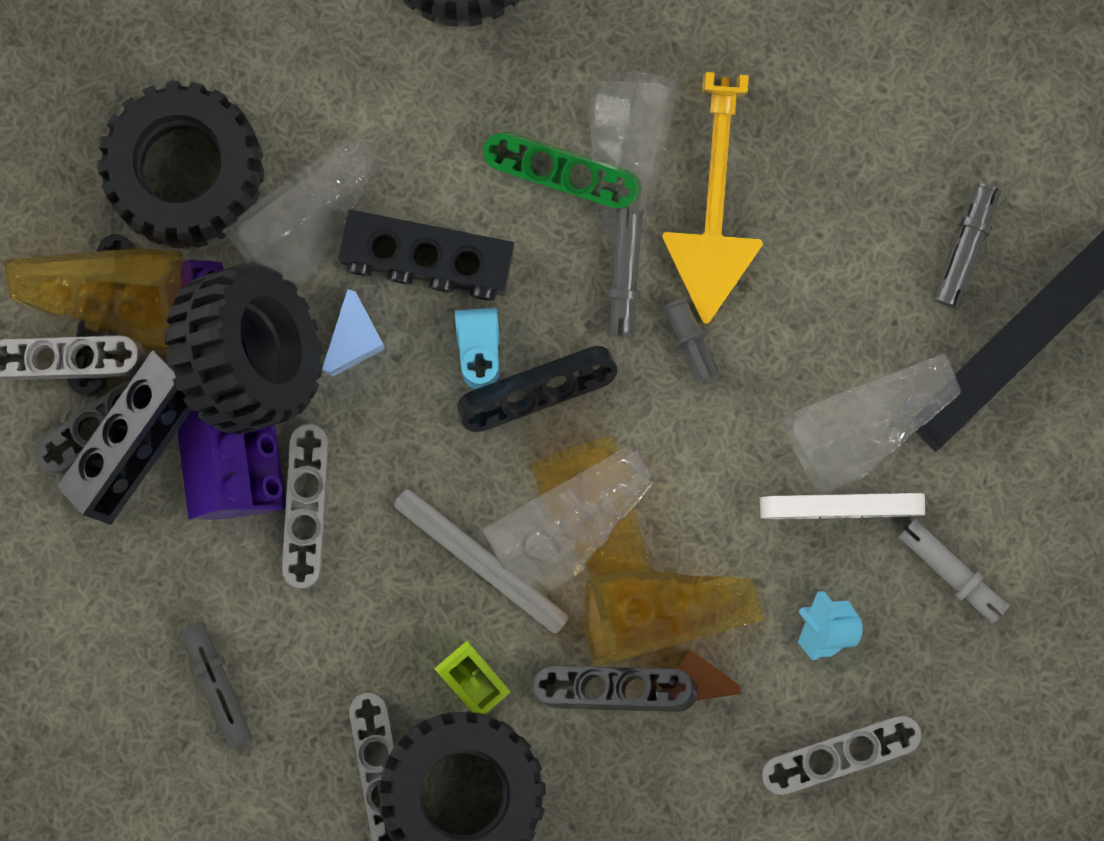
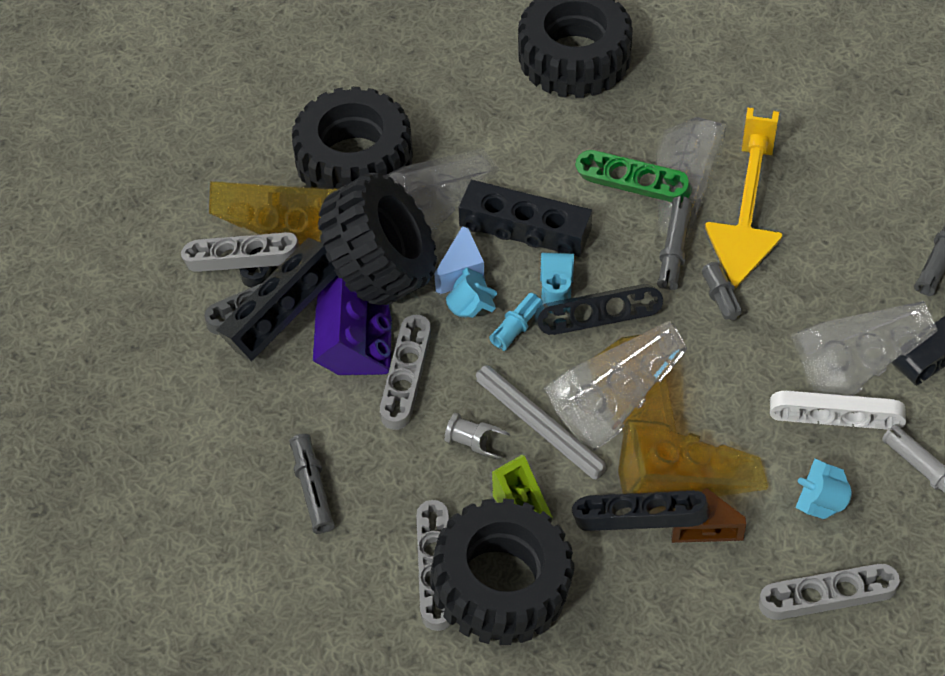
camera: 10 degrees right, 30 degrees down
(372, 389) = (470, 295): none -> medium azure piece
(405, 595) = (471, 434): none -> light grey piece
(435, 415) = (515, 322): none -> medium azure axle

